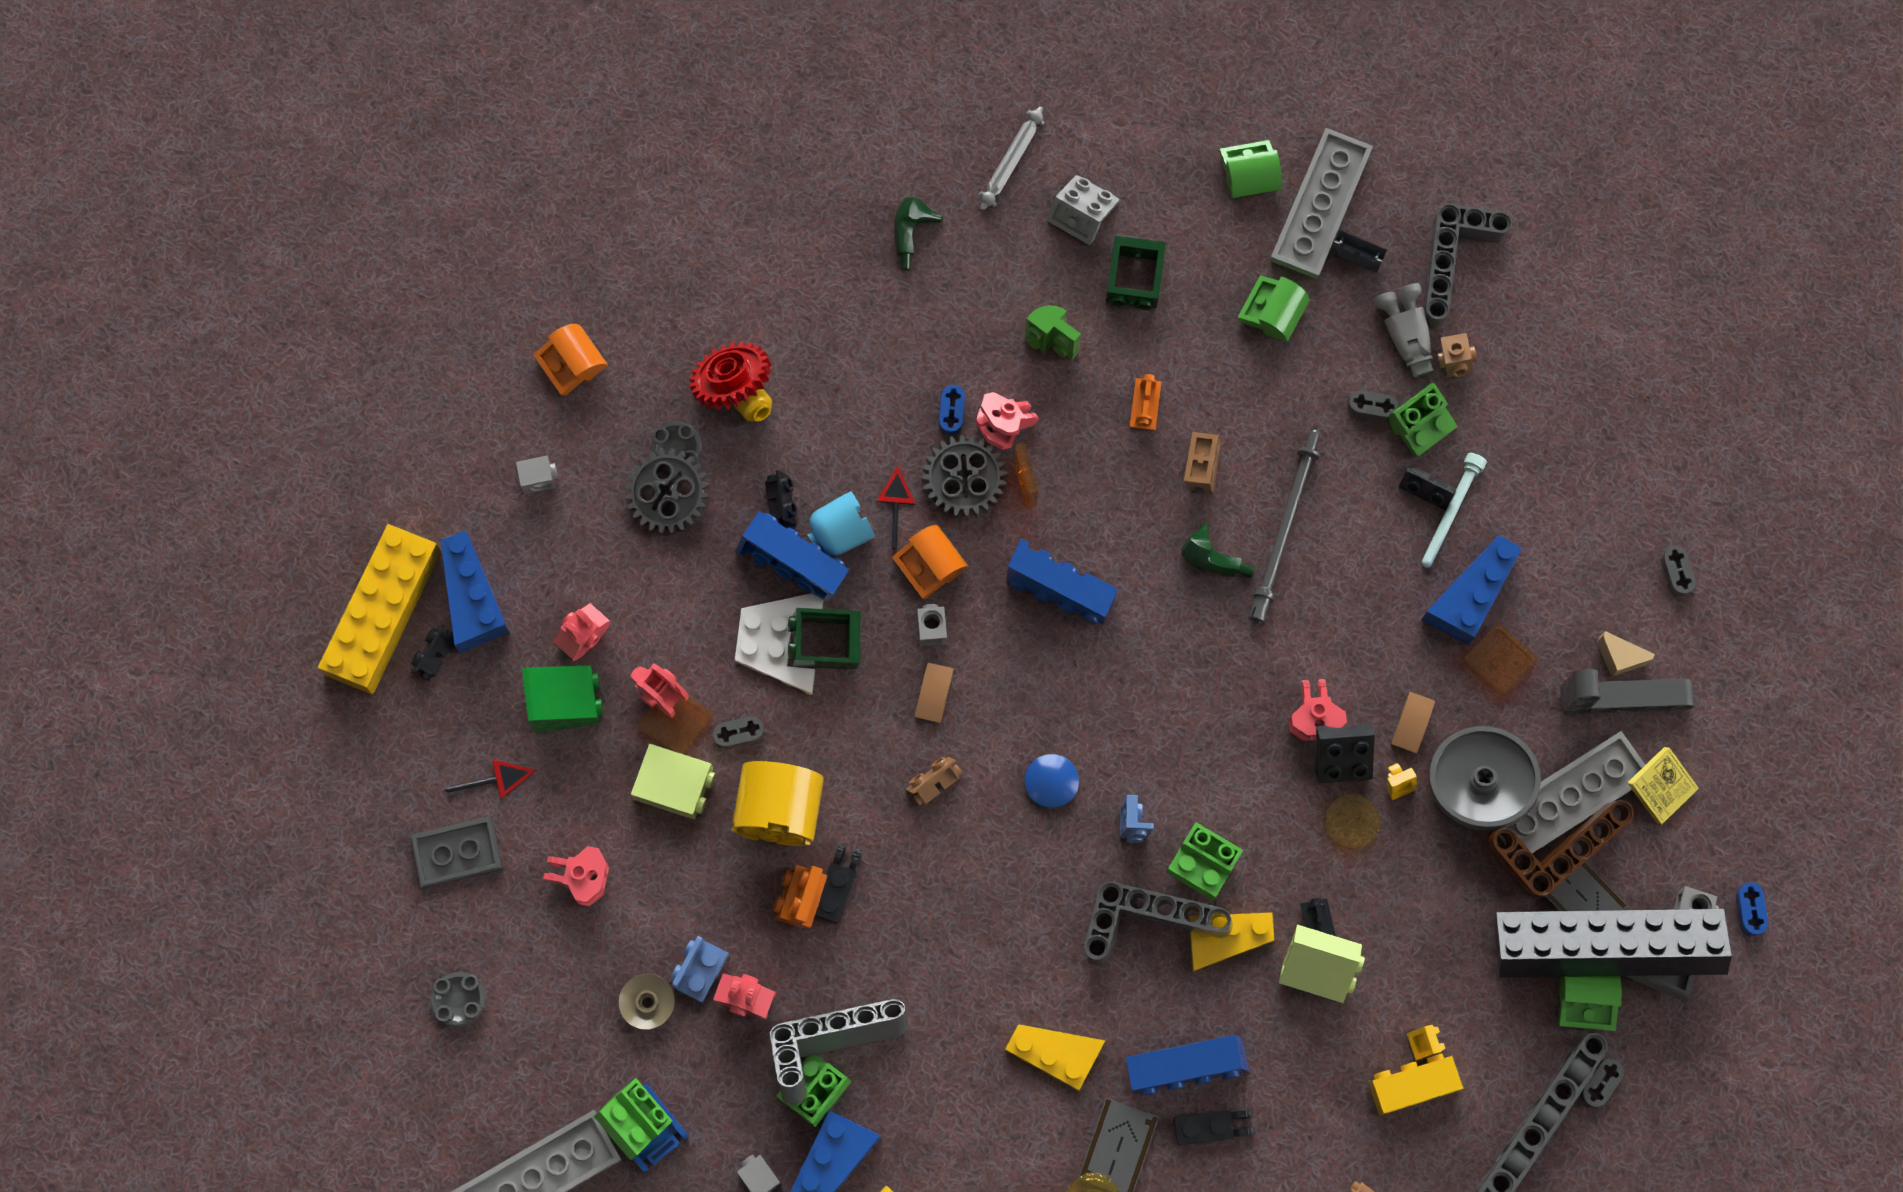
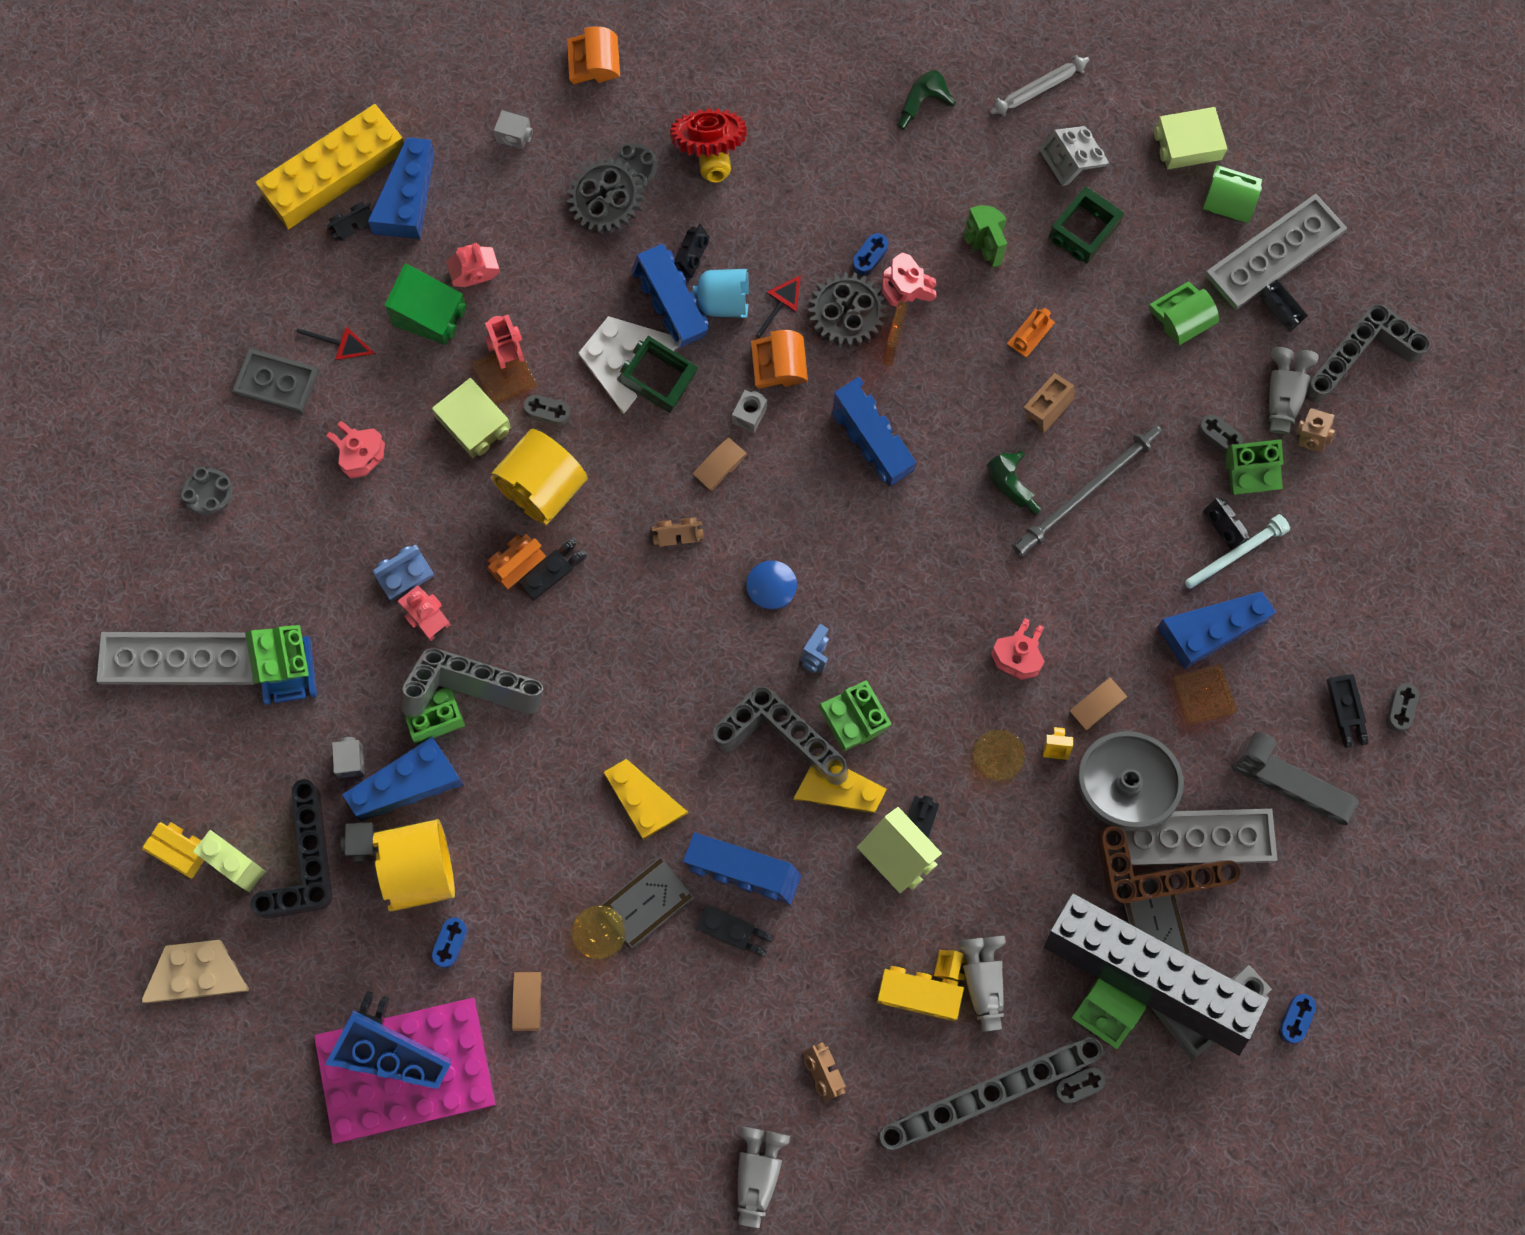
camera: 30 degrees right, 0 degrees up
(644, 987) = (339, 565): dark tan dish -> none
(1181, 135) = (1190, 138): none -> yellowish green brick
(1344, 753) = (1023, 694): black brick -> none
(1464, 1036) = (985, 979): none -> light grey piece
(1622, 655) = (1311, 749): tan slope -> none
(1632, 599) = (1347, 708): none -> black hinge
(1663, 785) = (1281, 873): light yellow tile -> none

